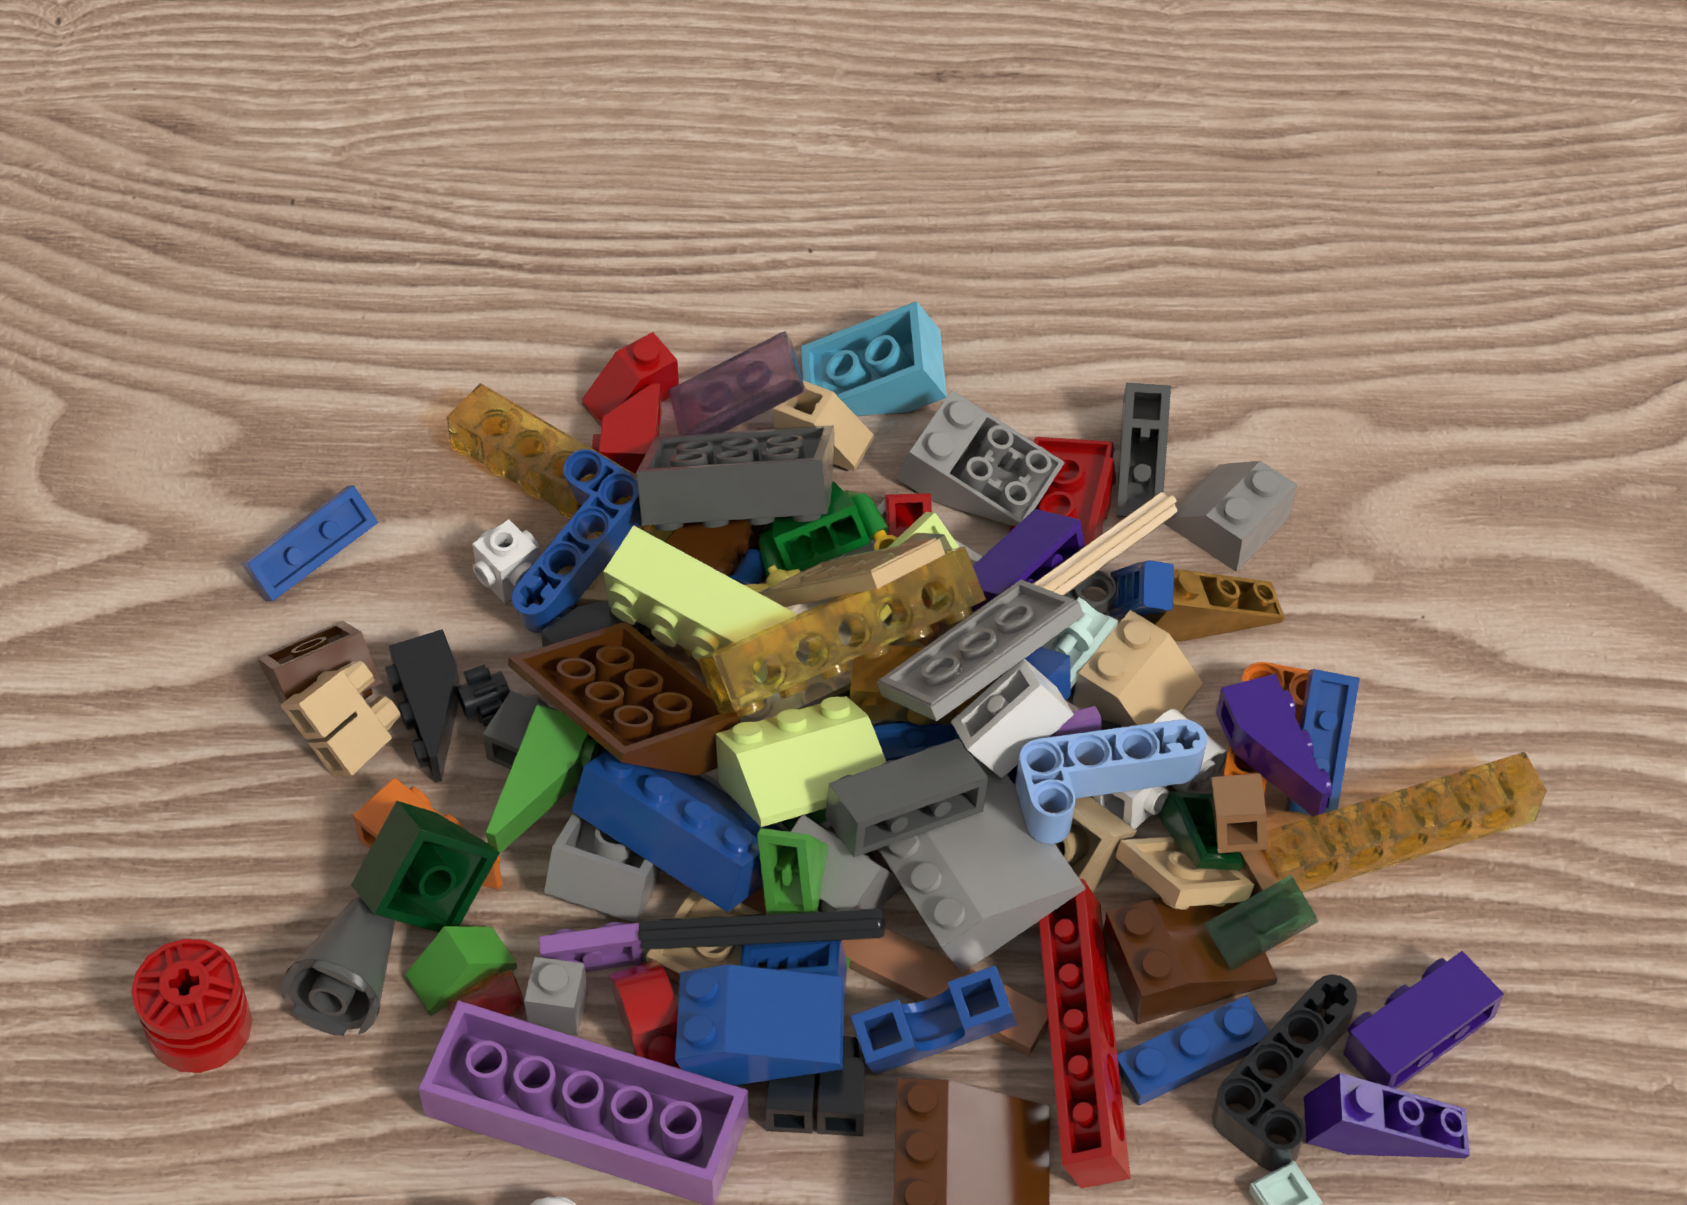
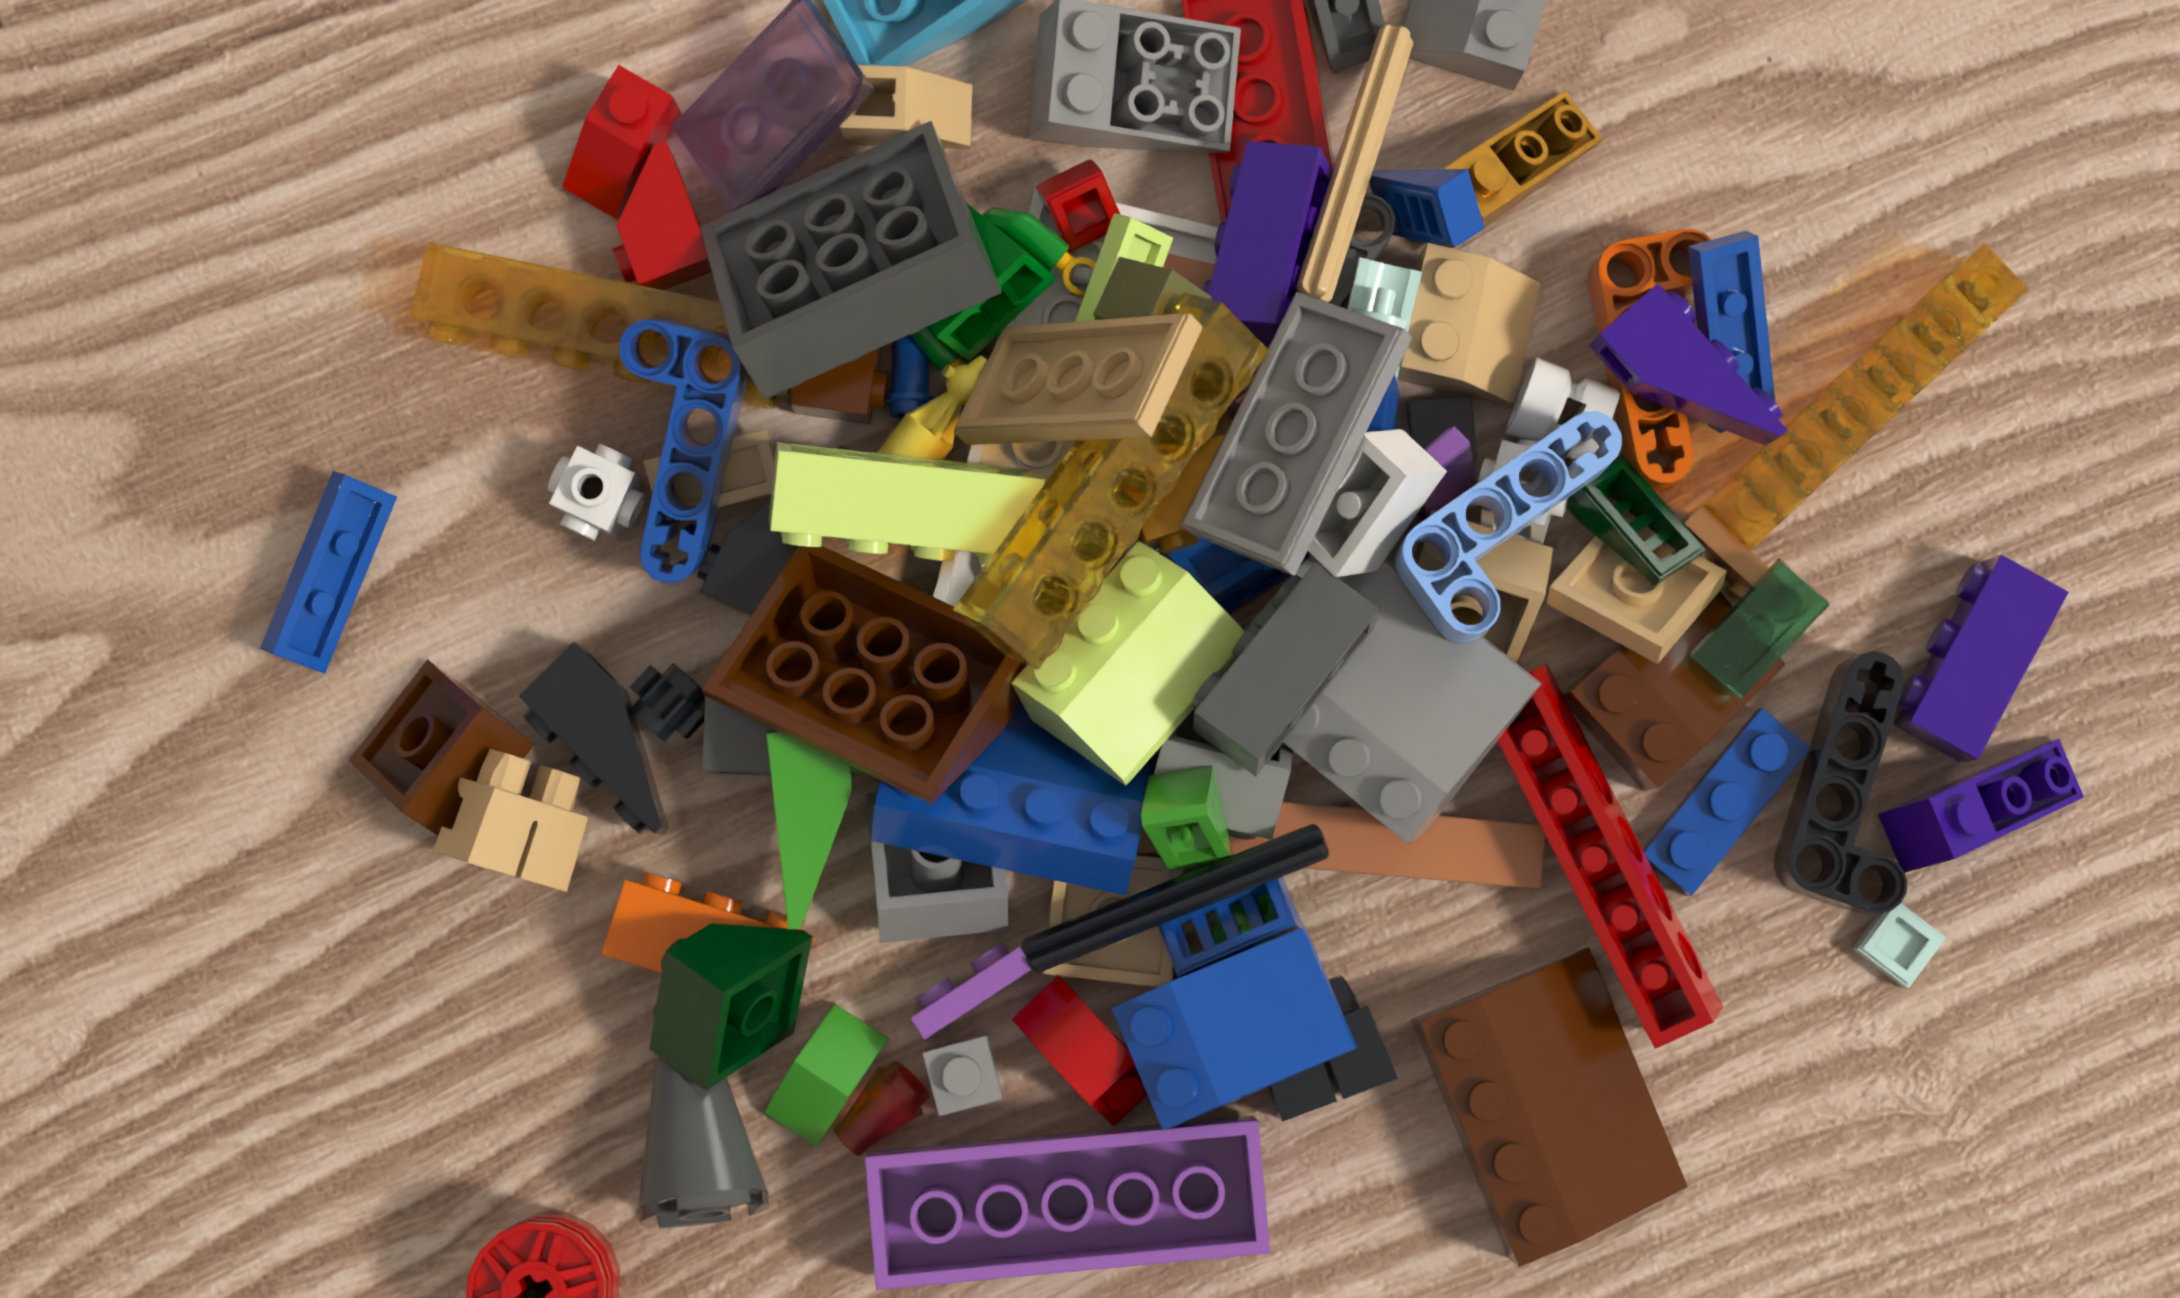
camera: 30 degrees left, 30 degrees up
(910, 1032) = (1457, 893): blue arch -> none
(1239, 813) = (1683, 495): medium nougat brick -> none

